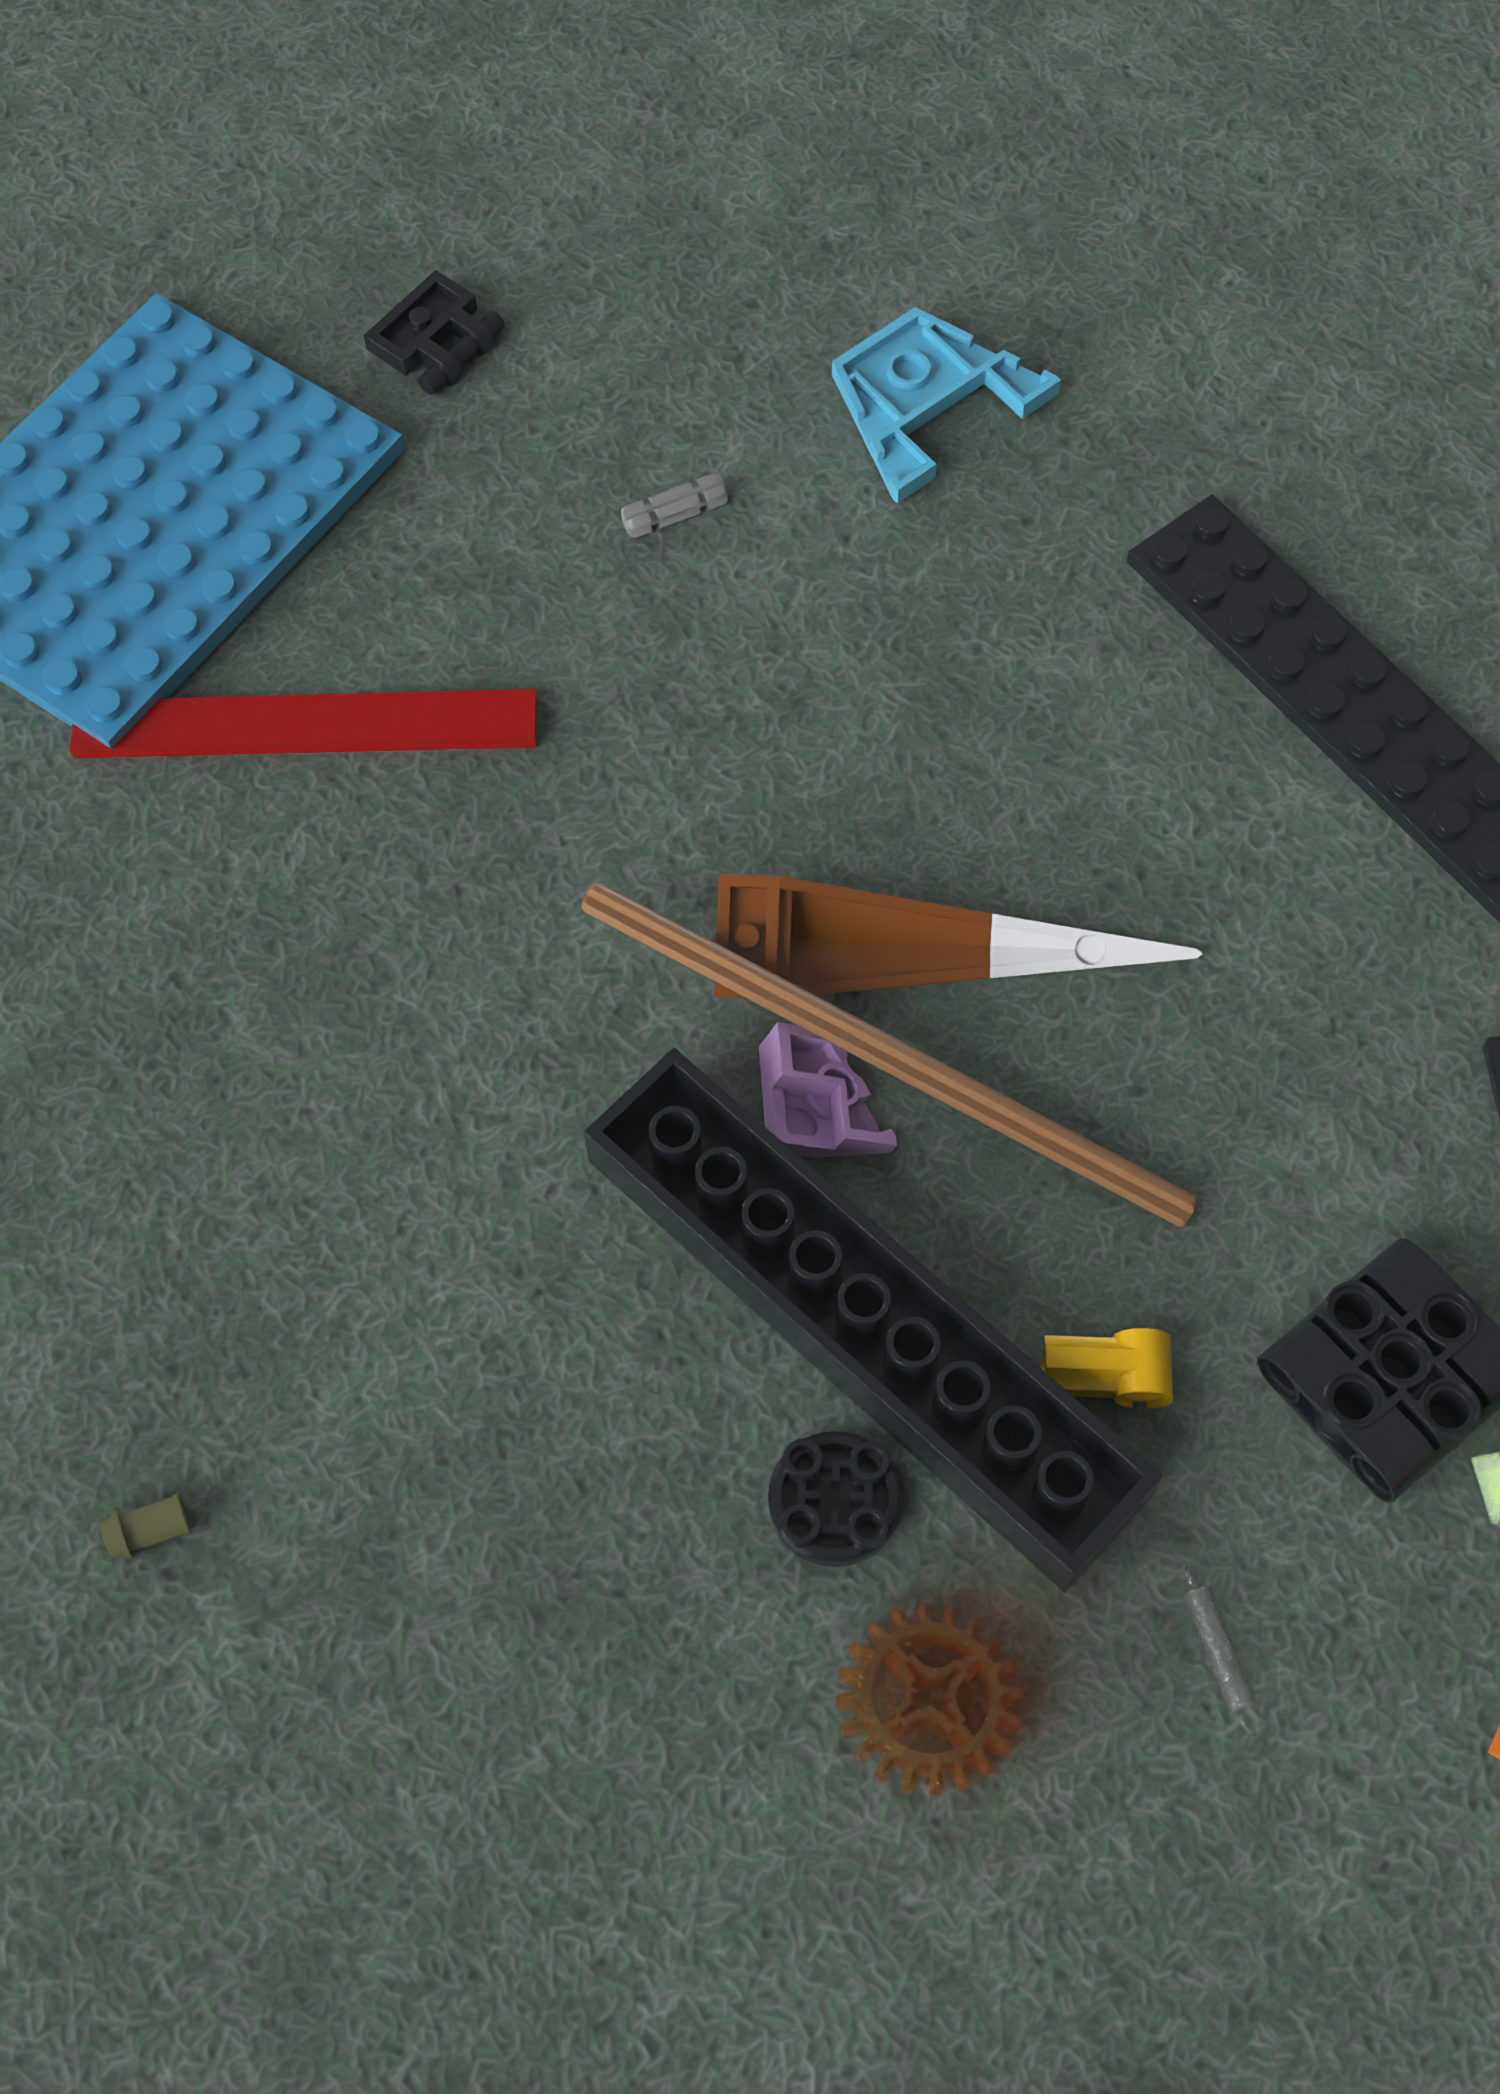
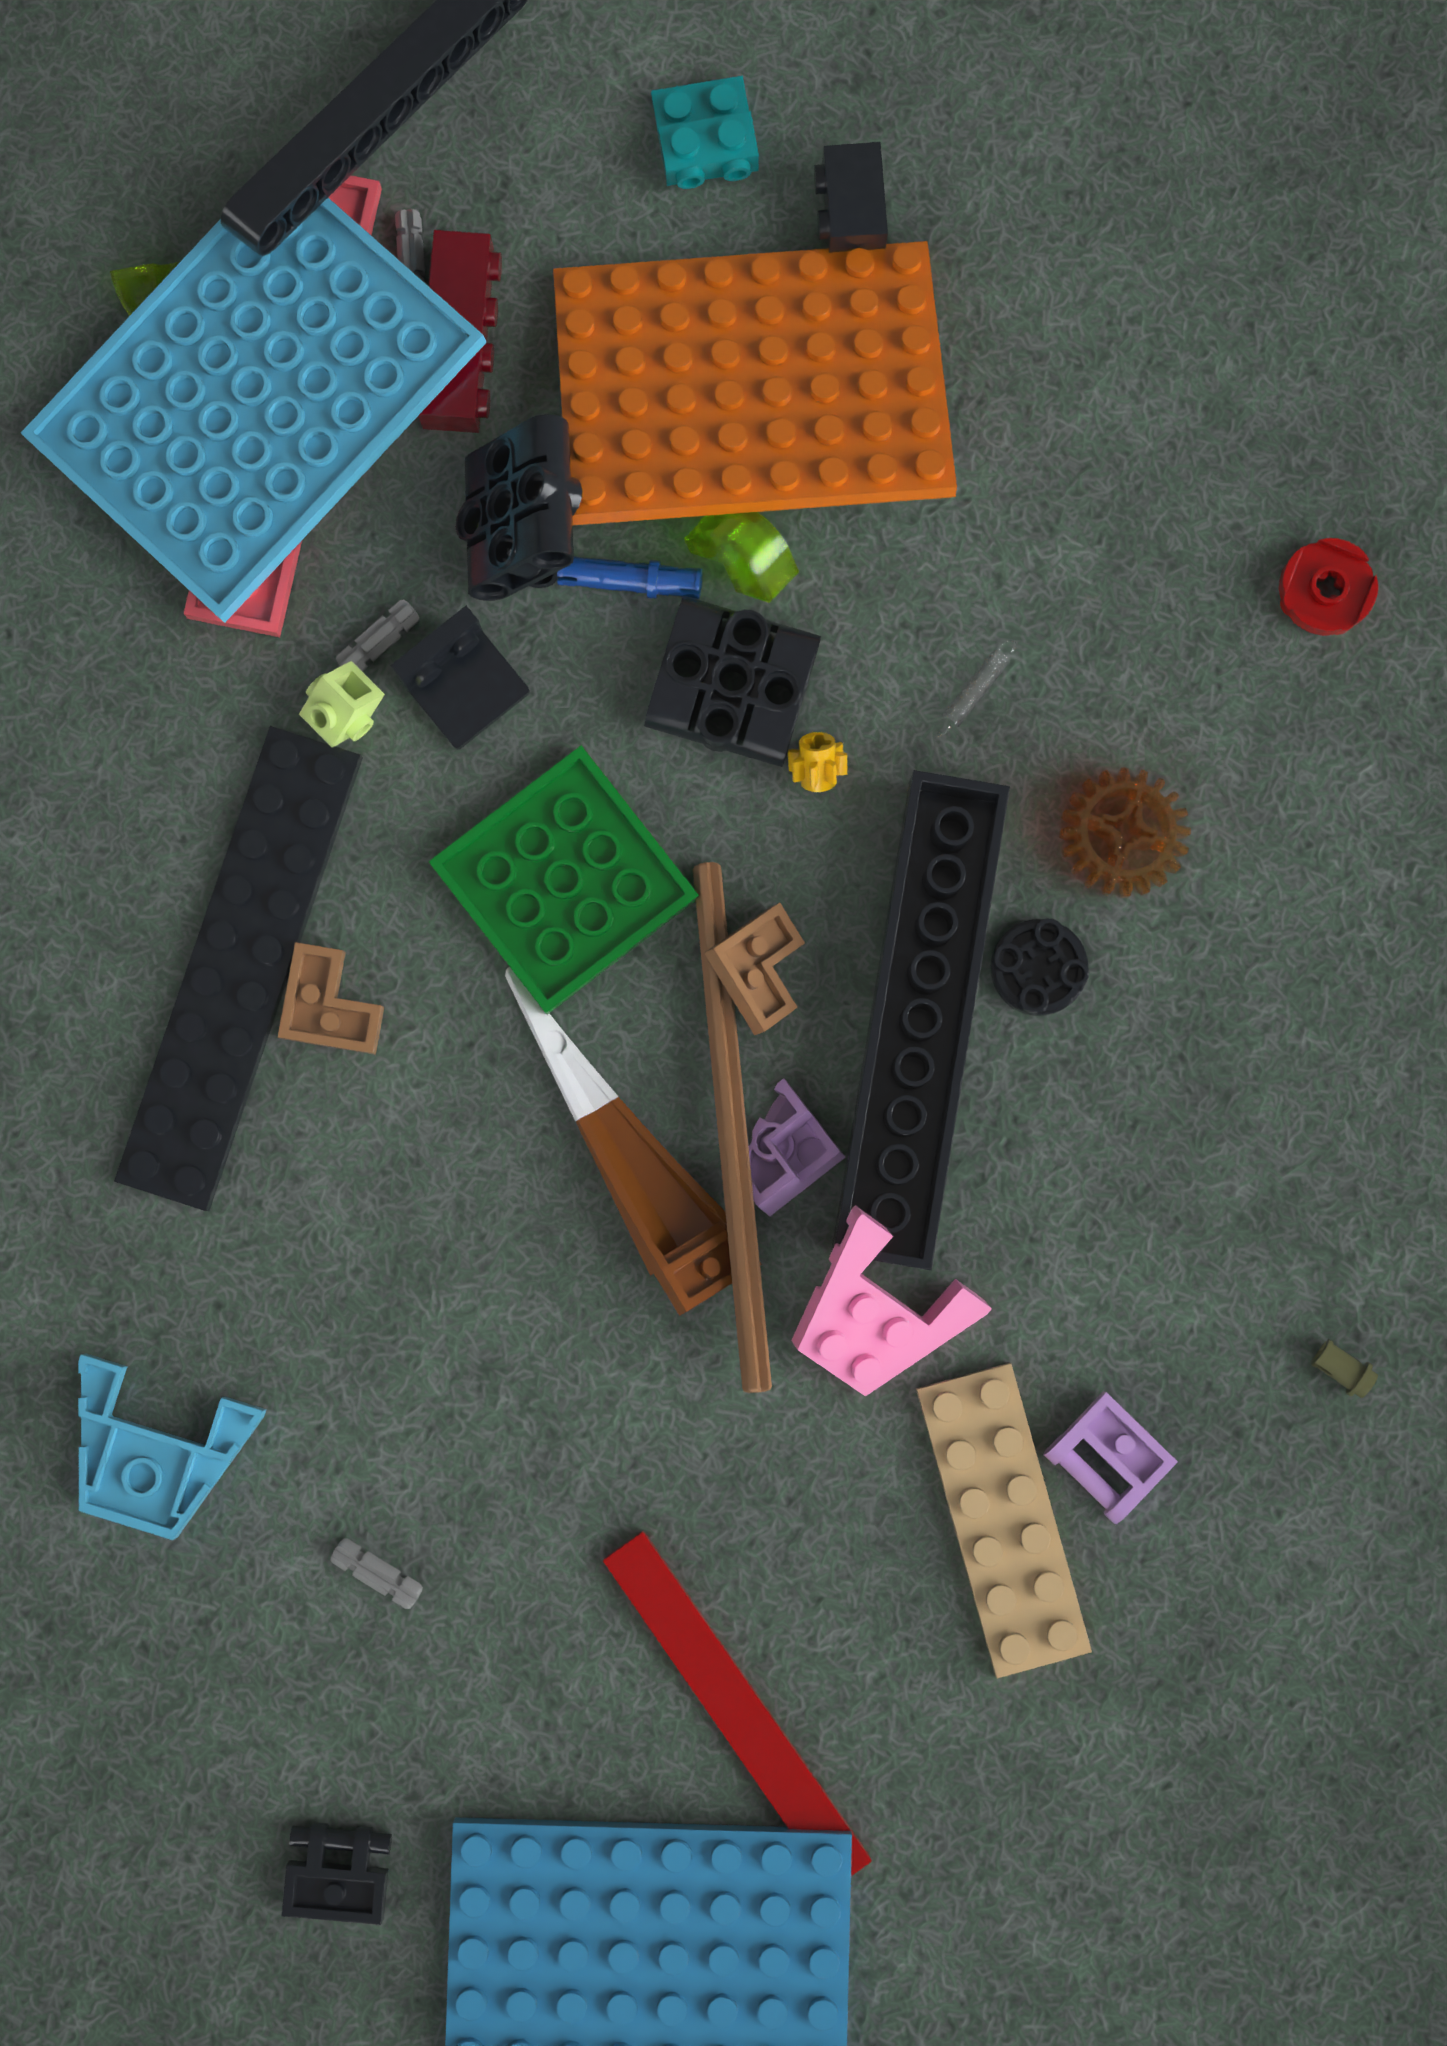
camera: 125 degrees left, 20 degrees up
(258, 1231) = (1122, 1445): none -> lavender plate
(281, 1072) = (1003, 1520): none -> tan plate
(567, 1048) = (863, 1329): none -> bright pink wing
(1053, 1169) = (746, 967): none -> medium nougat plate
(1125, 1367) = (845, 847): yellow piece -> none
(1239, 1397) = (817, 762): none -> yellow gear
(1267, 1060) = (564, 879): none -> green plate
(1274, 748) = (316, 1014): none -> medium nougat plate

